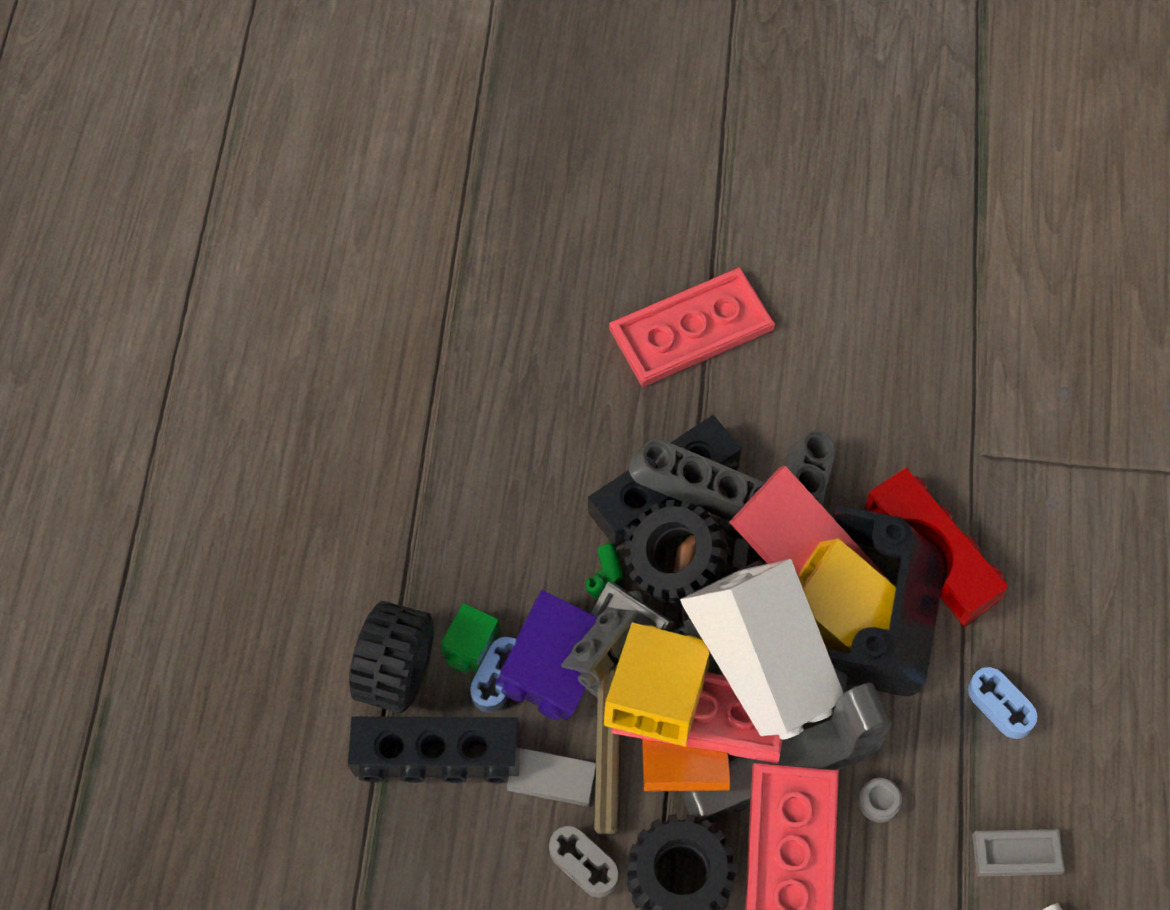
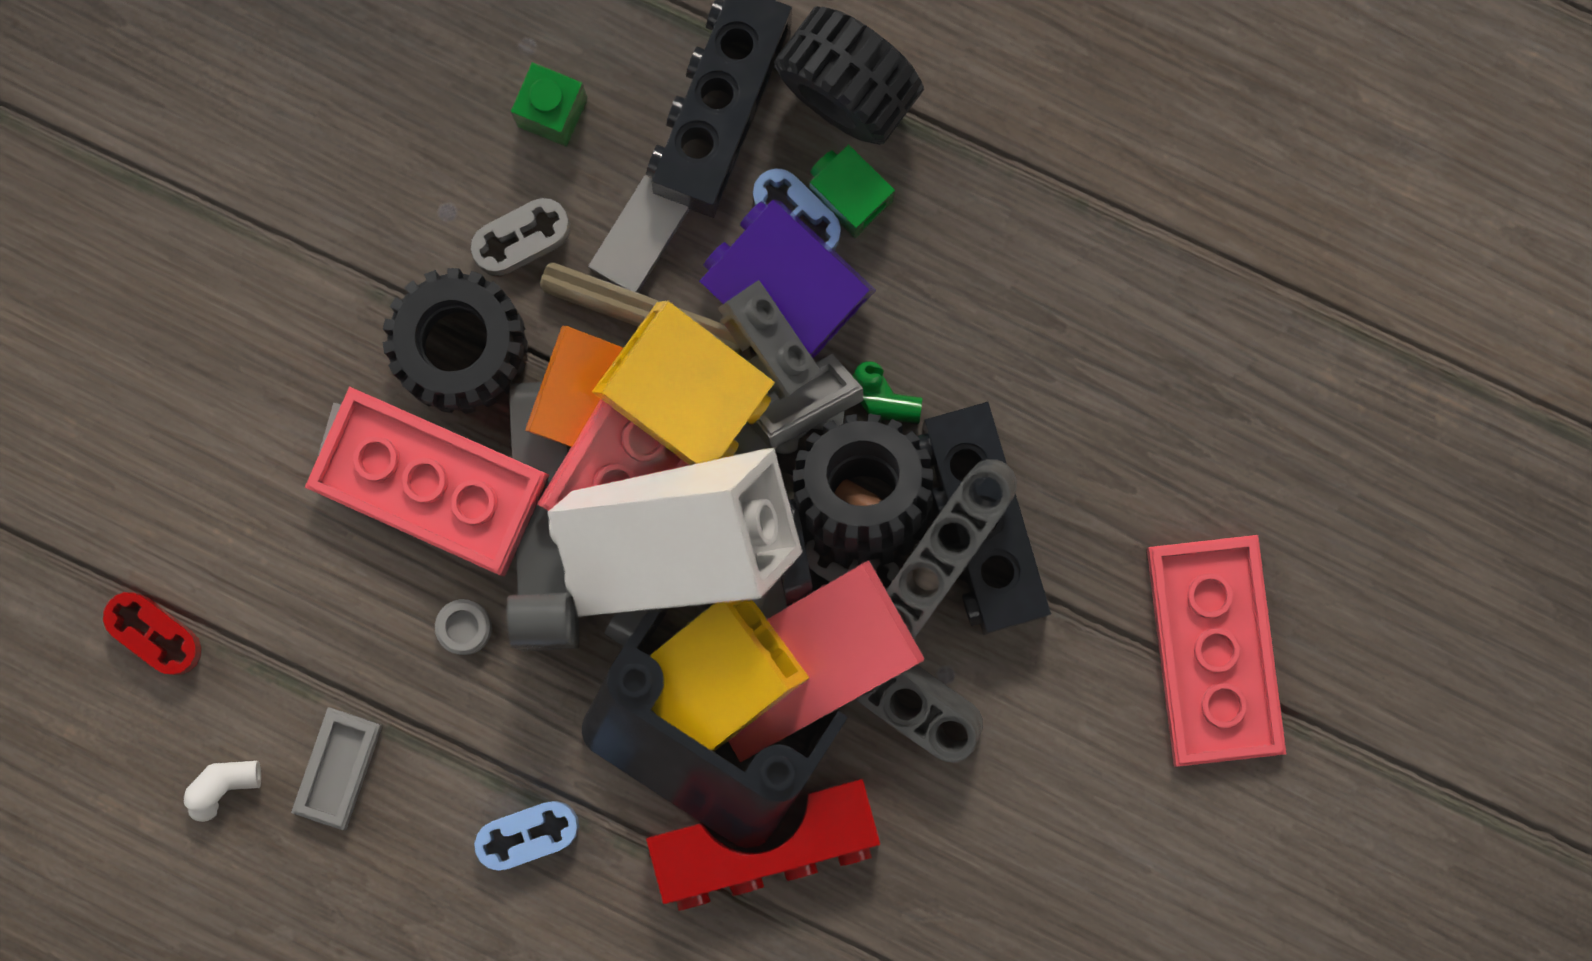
camera: 110 degrees right, 20 degrees up
(478, 870) = (549, 104): none -> green brick

